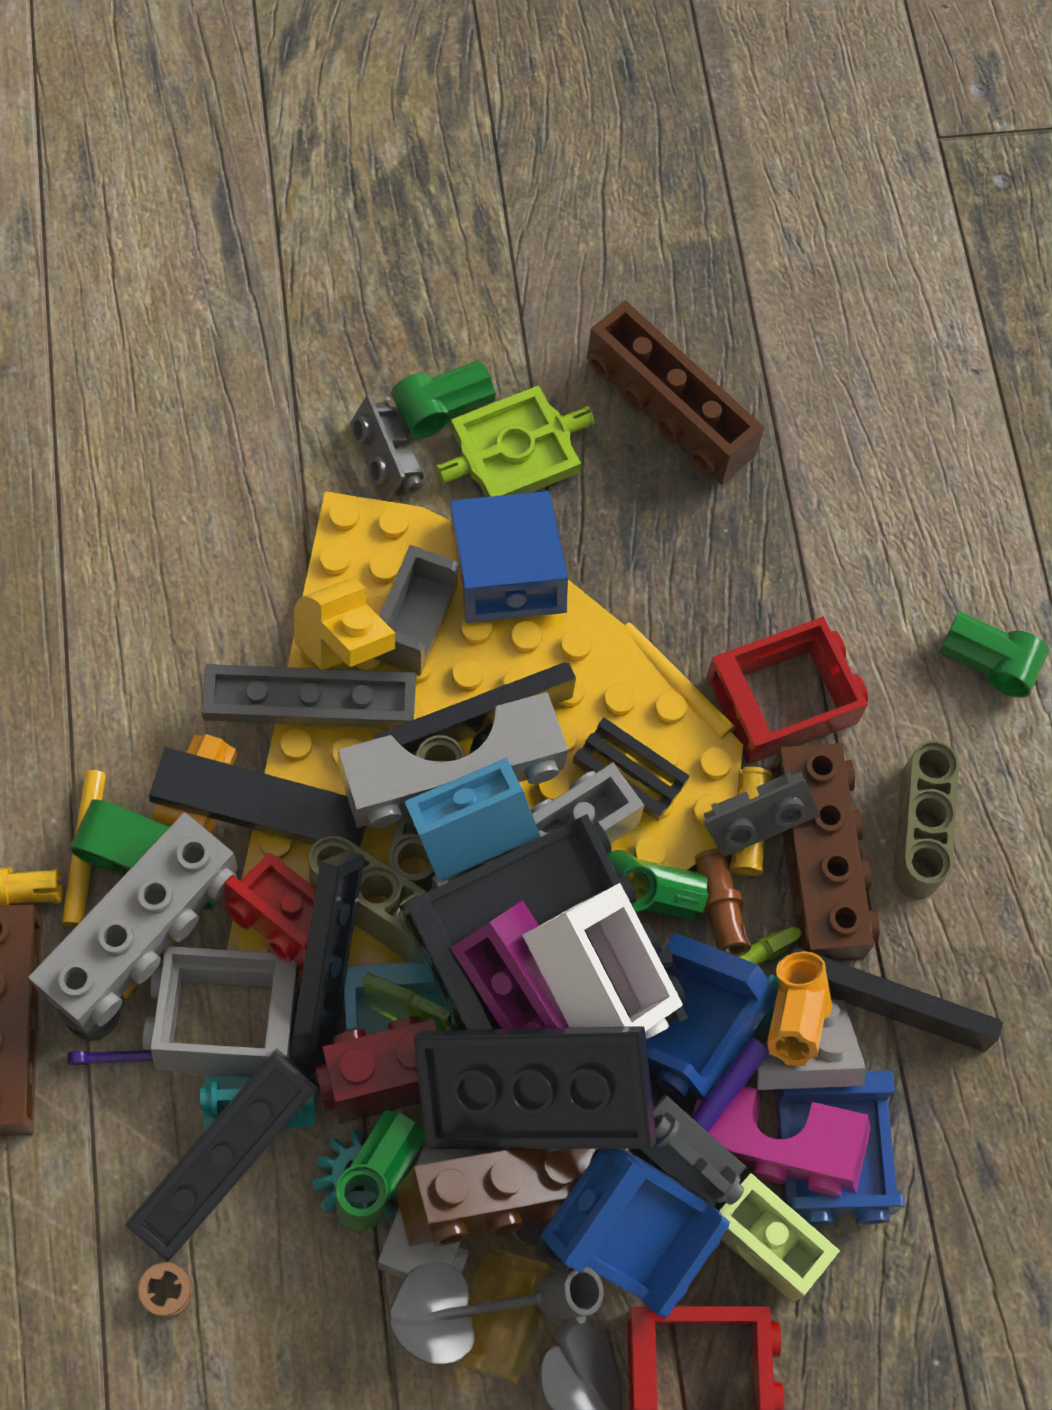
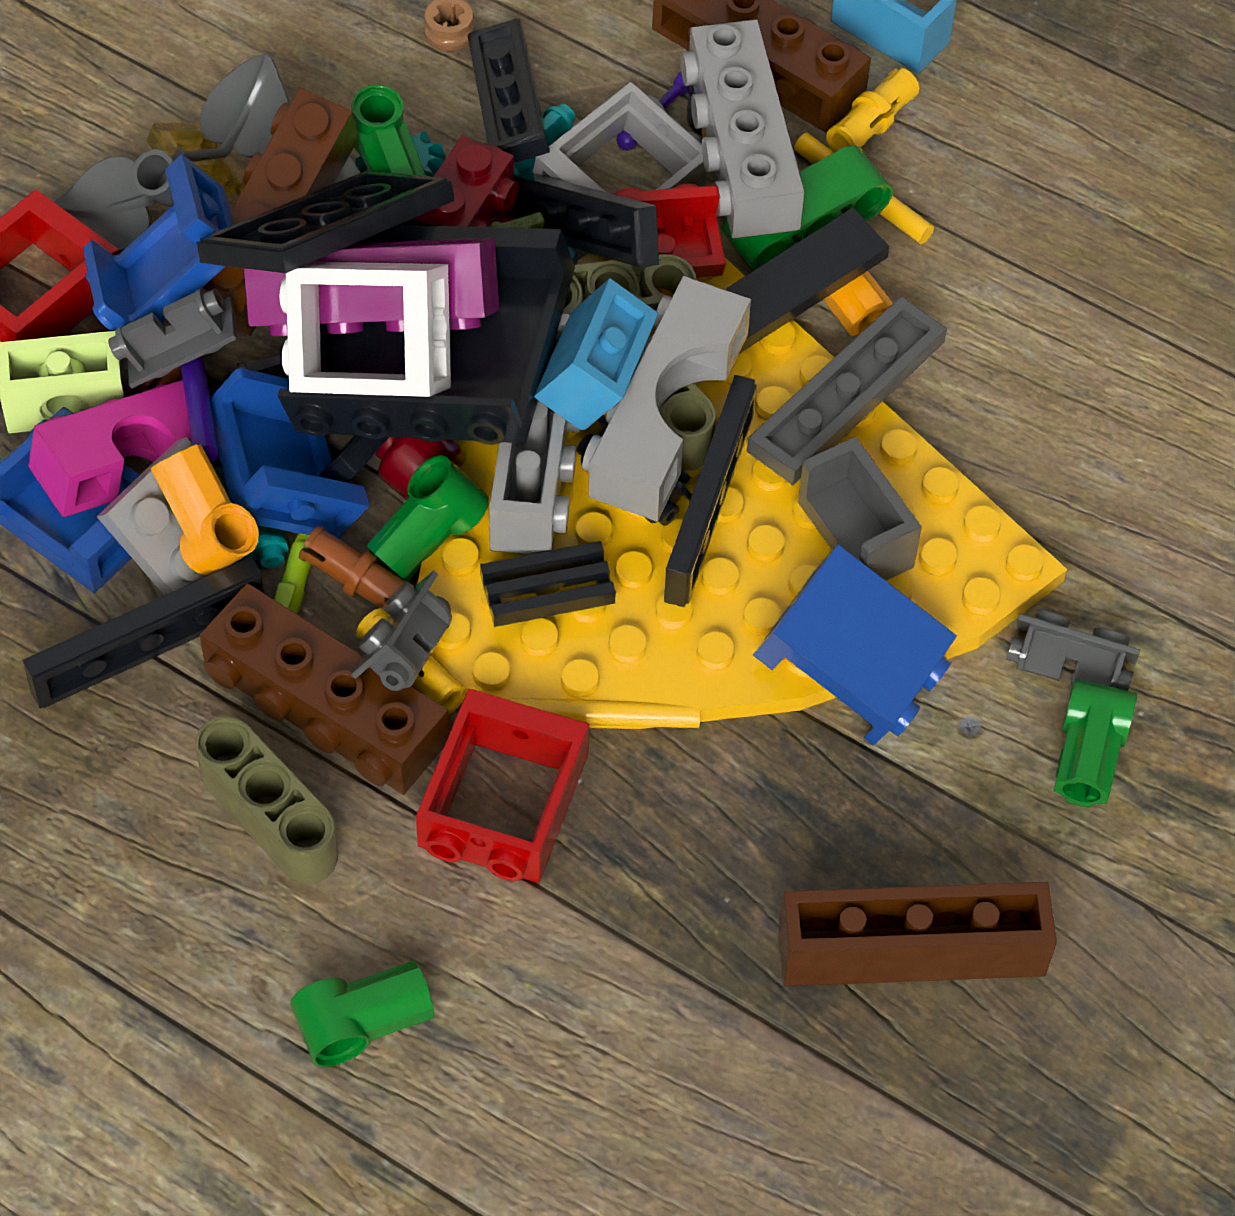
camera: 135 degrees right, 10 degrees down
(340, 626) = (887, 418): yellow brick -> none
(515, 445) = (981, 763): lime plate -> none

